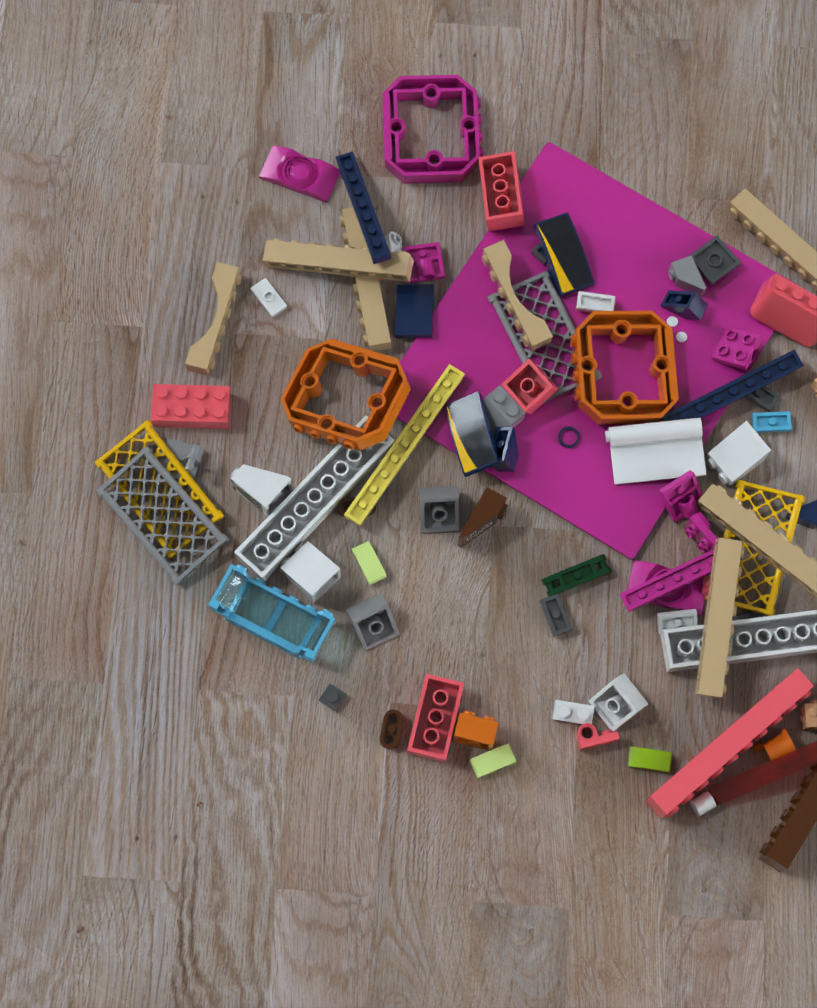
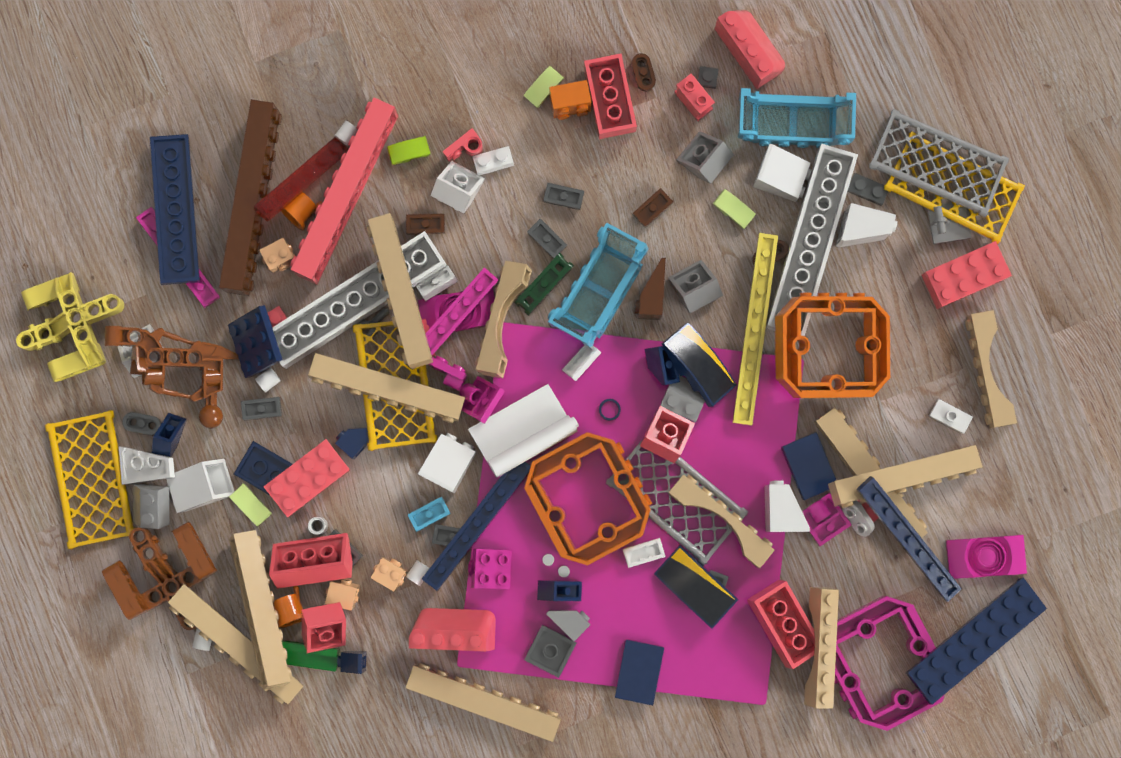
camera: 160 degrees right, 10 degrees up
(236, 524) = (867, 189): none -> dark grey plate
(277, 704) = (750, 46): none -> coral windscreen
(345, 109) = (976, 641): none -> dark blue plate
(356, 679) = (694, 97): none -> coral hips
(444, 598) = (652, 207): none -> reddish brown plate
(460, 278) = (783, 510): none -> white slope
(463, 186) = (824, 612): none -> tan arch
(522, 647) = (563, 196): none -> dark grey plate
(532, 543) = (601, 286): none -> windscreen
(575, 487) = (581, 361): none -> white plate
(644, 211) = (639, 672): none -> dark blue tile
(655, 526) = (512, 283): none -> tan arch
(664, 681) = (425, 222): none -> reddish brown plate
(802, 377) = (417, 572): none -> white beam

